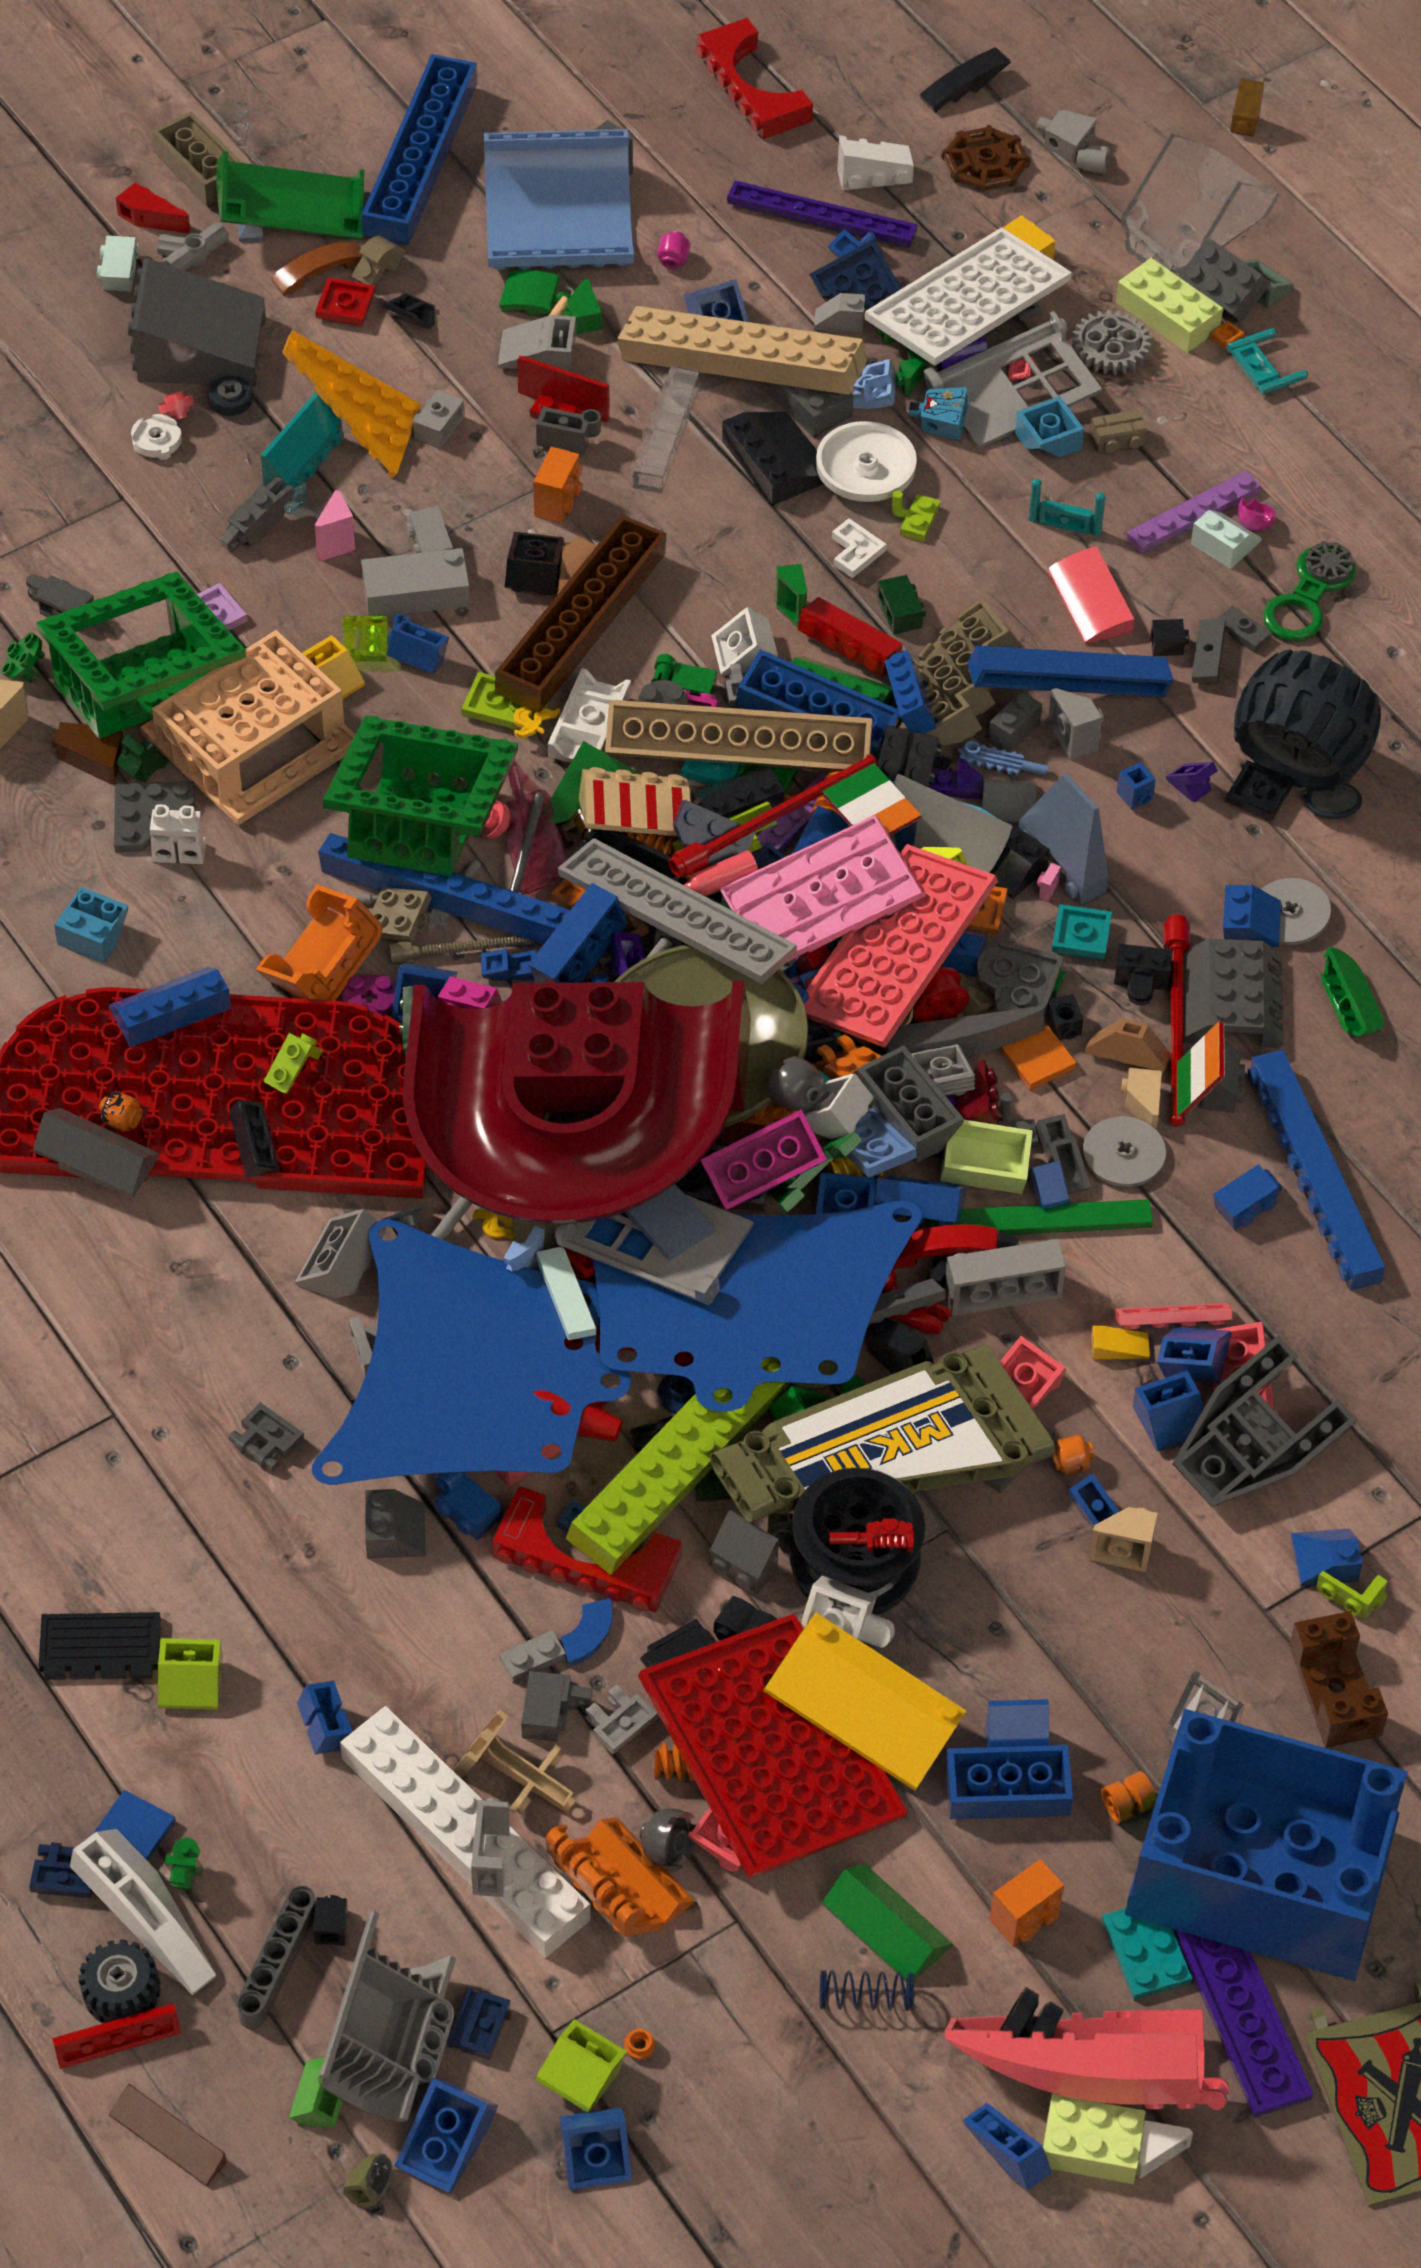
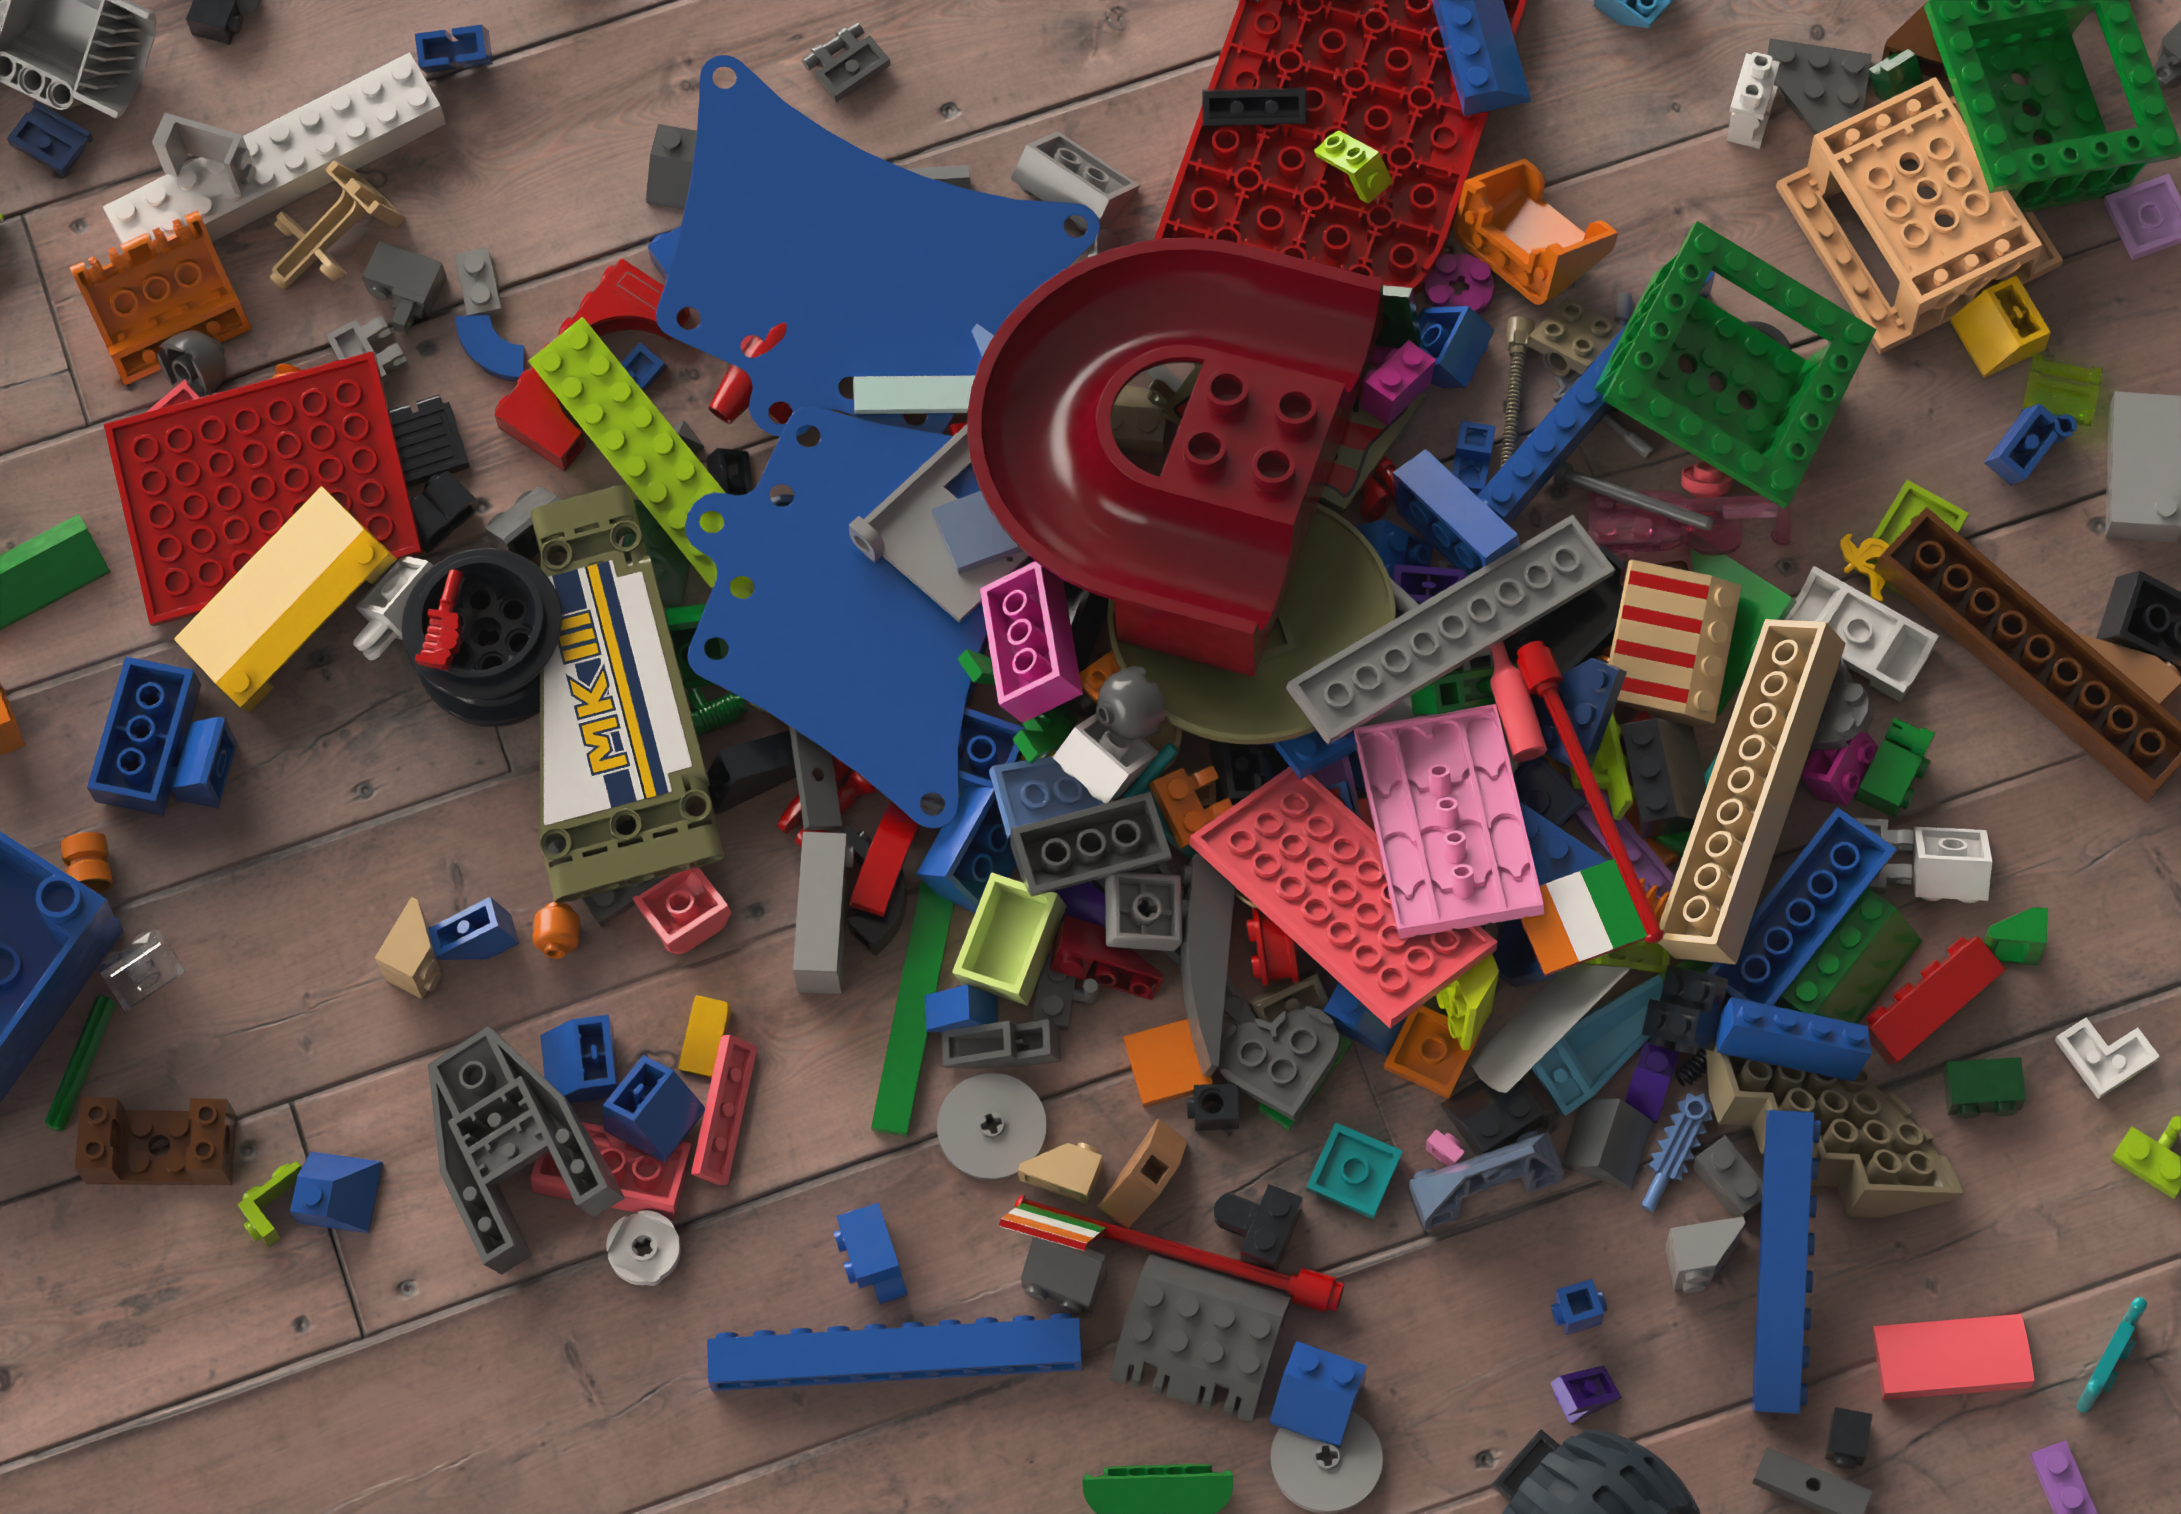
camera: 110 degrees right, 15 degrees up
(1309, 1336) = (637, 1228): none -> white plate

